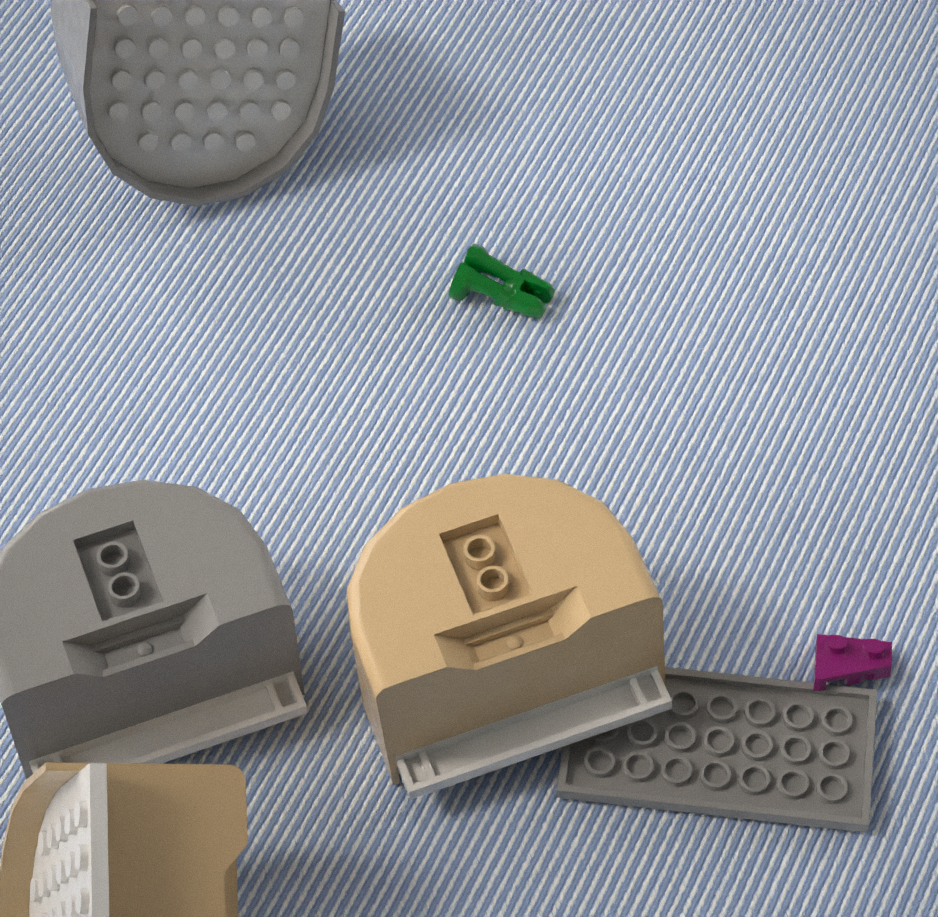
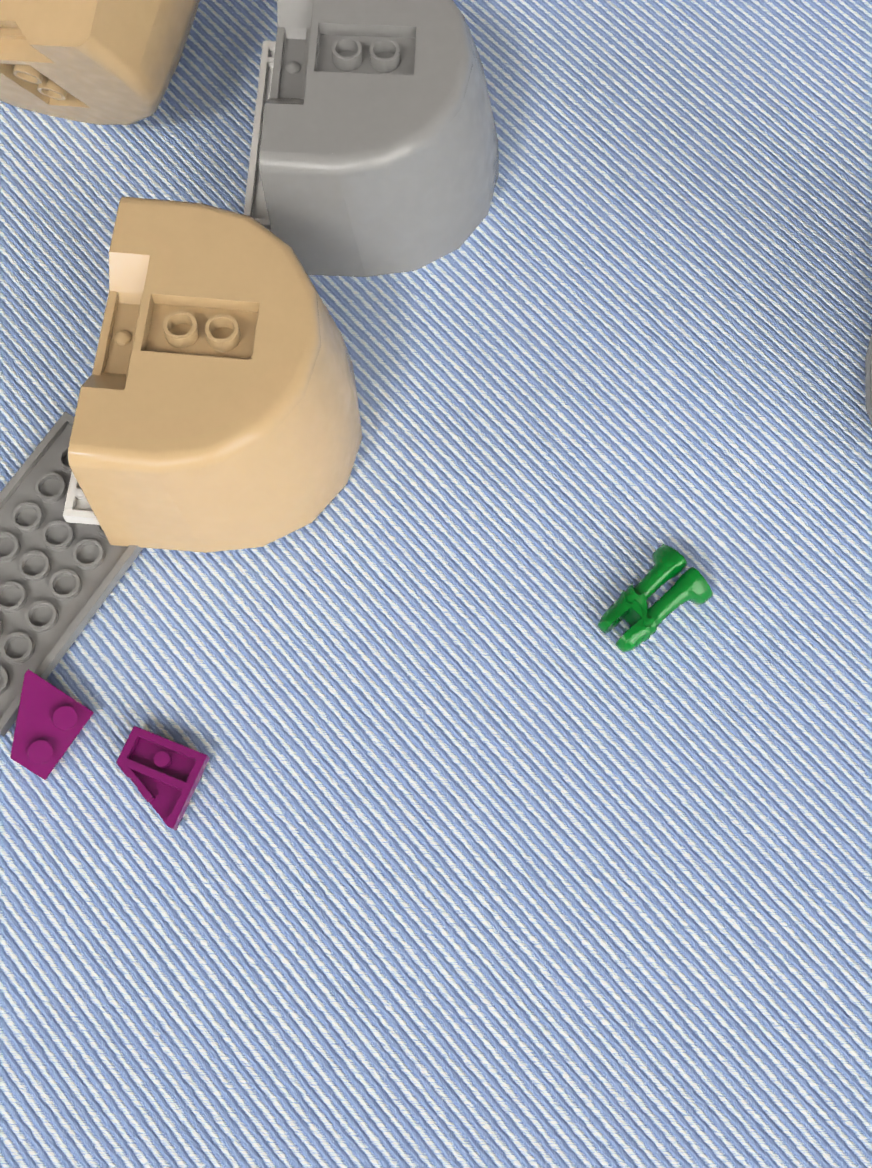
camera: 110 degrees right, 15 degrees up
(835, 560) = (162, 772): none -> magenta wing

